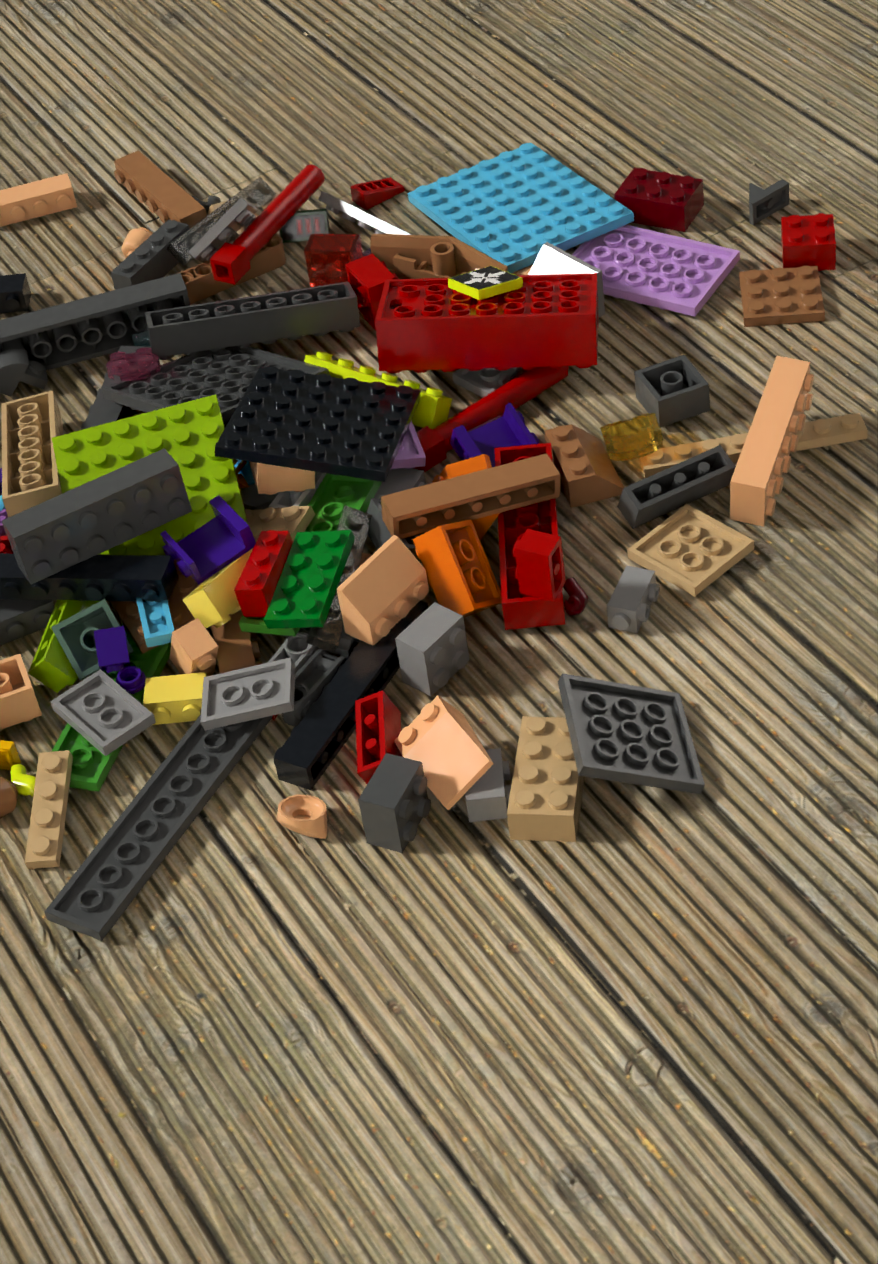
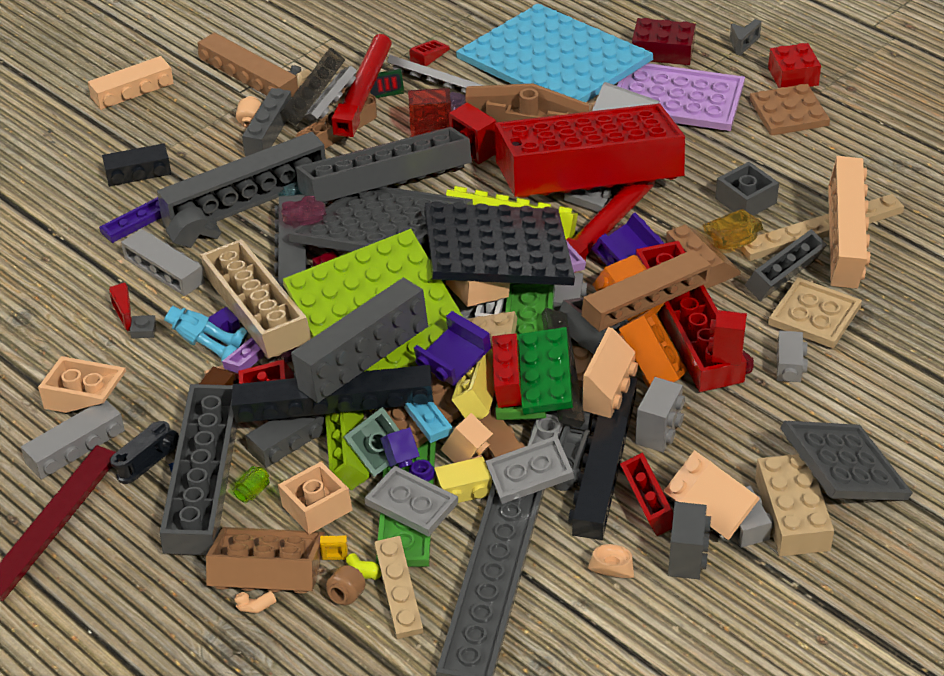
camera: 20 degrees left, 0 degrees up
(485, 283) = (581, 118): tile -> none

